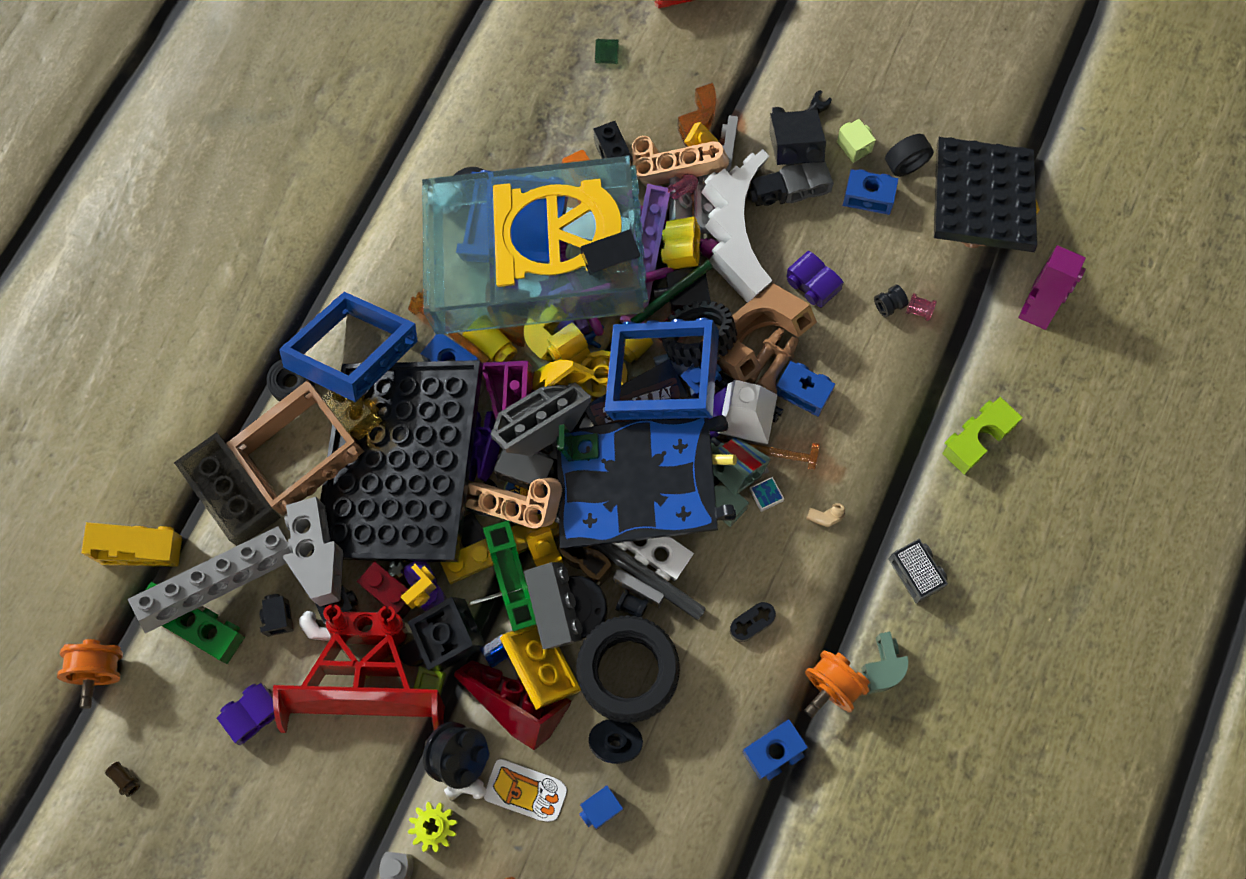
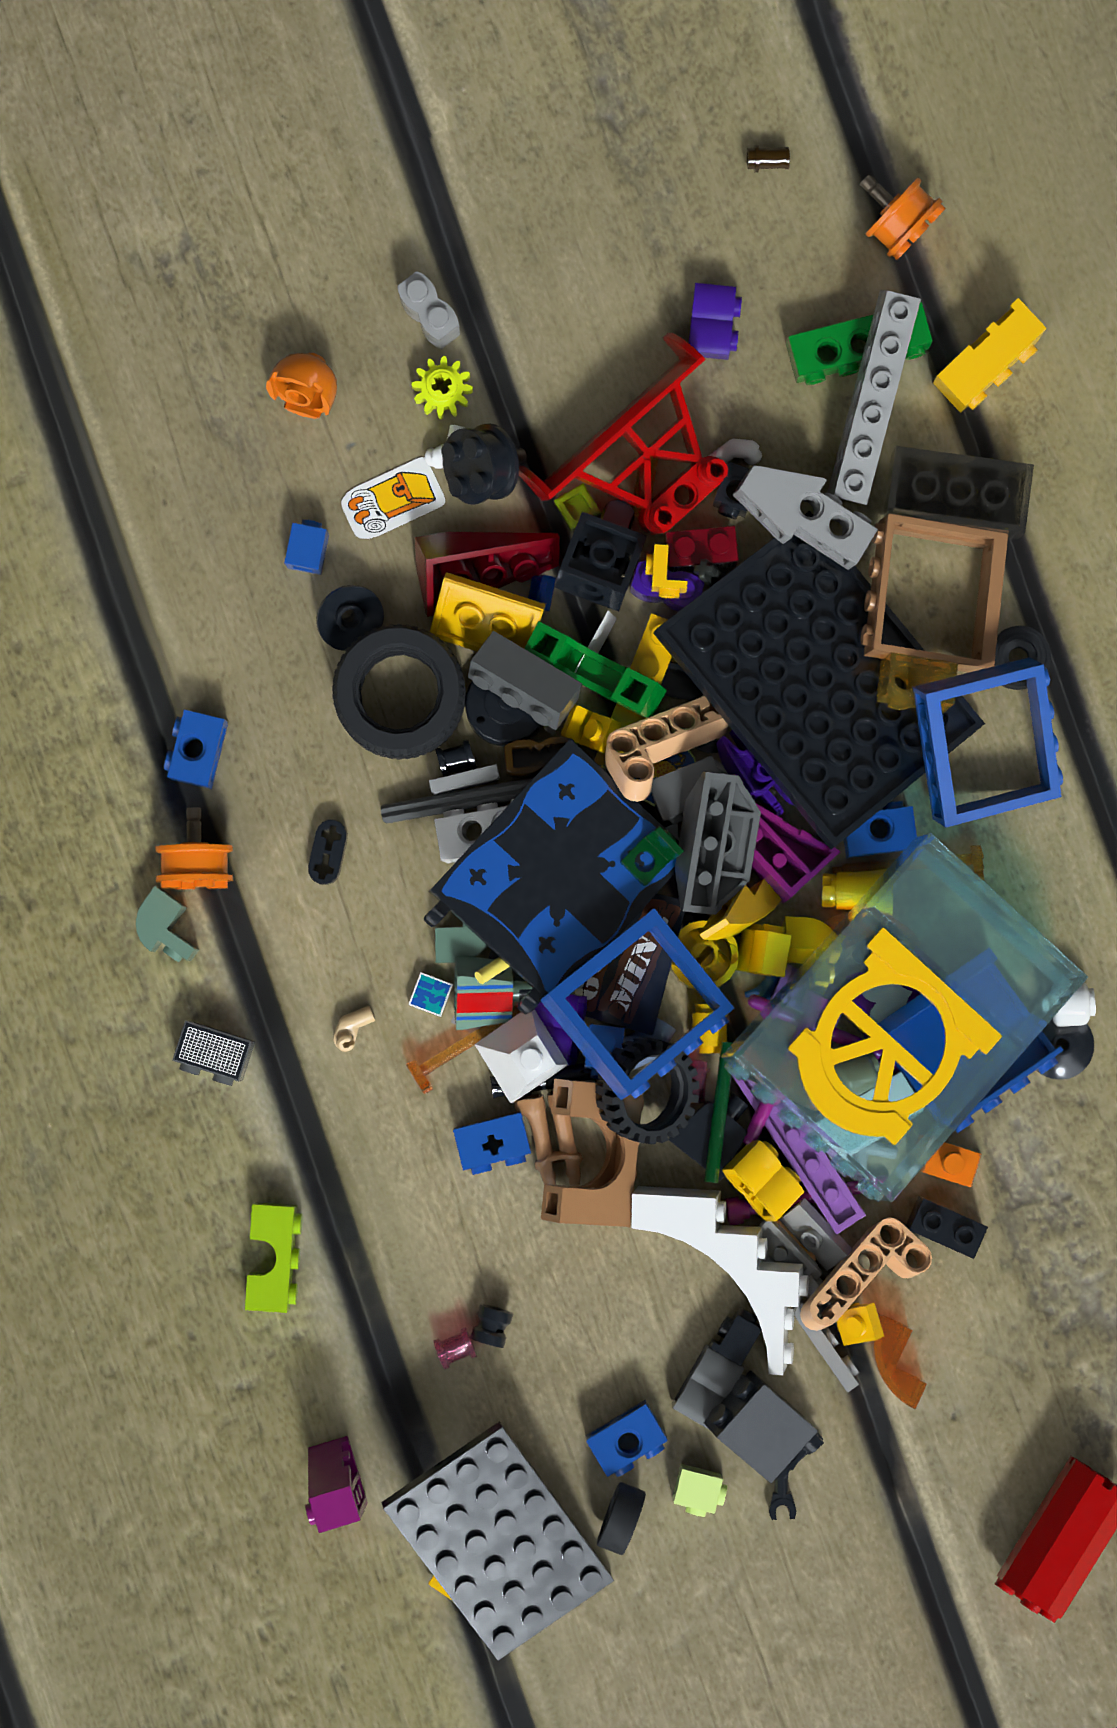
camera: 135 degrees right, 15 degrees up
(275, 615) = (784, 427): black brick -> none
(606, 51) = (1079, 1349): clear green tile -> none
(609, 251) = (794, 1062): black hinge -> none
(687, 184) = (824, 1250): clear pink pin -> none
(814, 279) = (593, 1275): dark purple brick -> none

